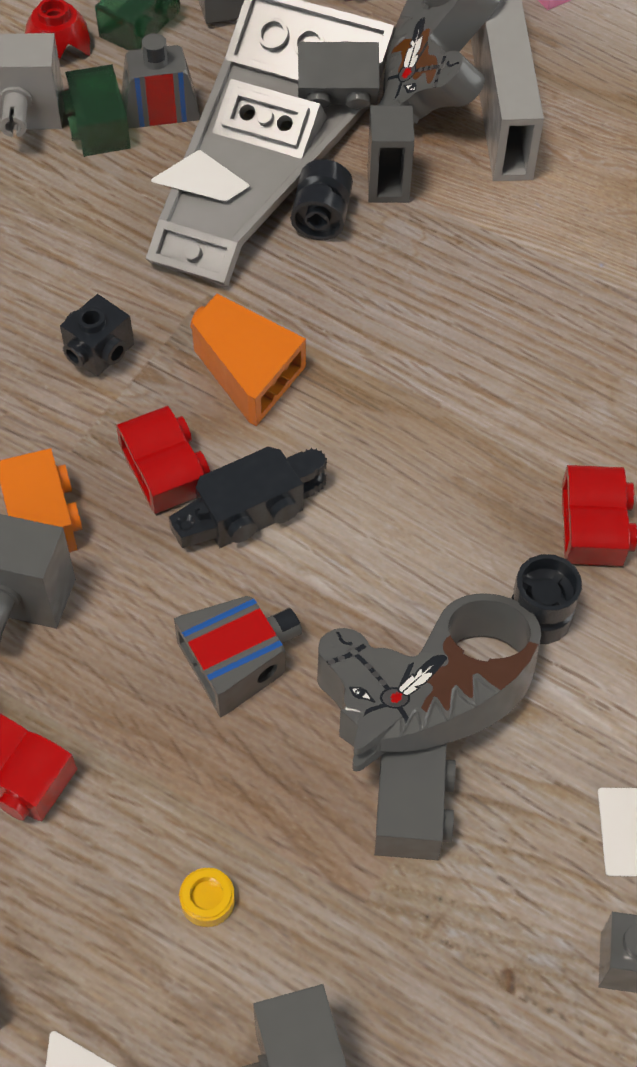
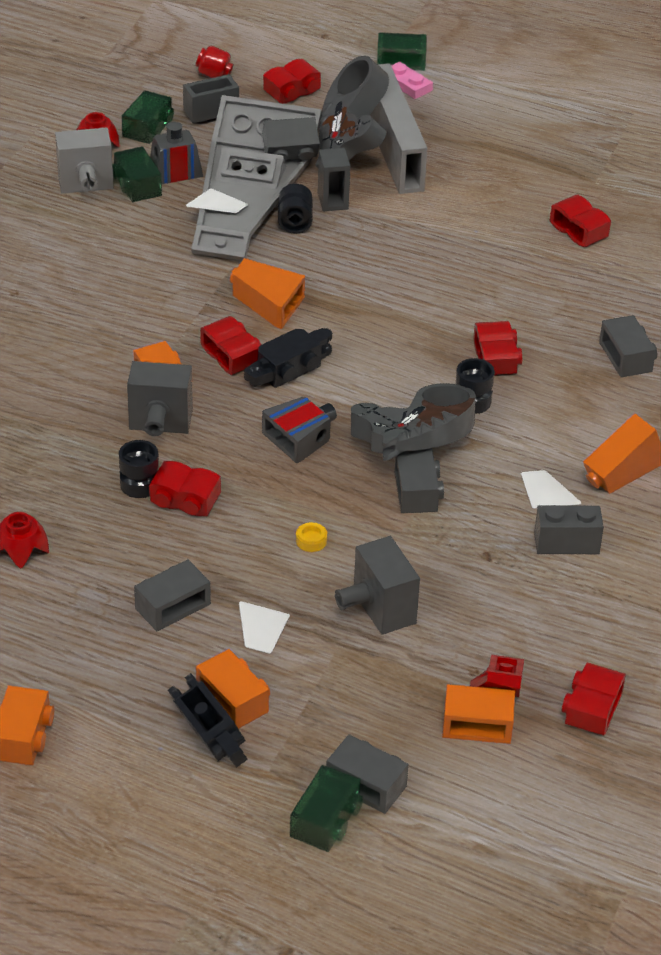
camera: 10 degrees left, 15 degrees down
(96, 335) = (174, 287): black brick -> none

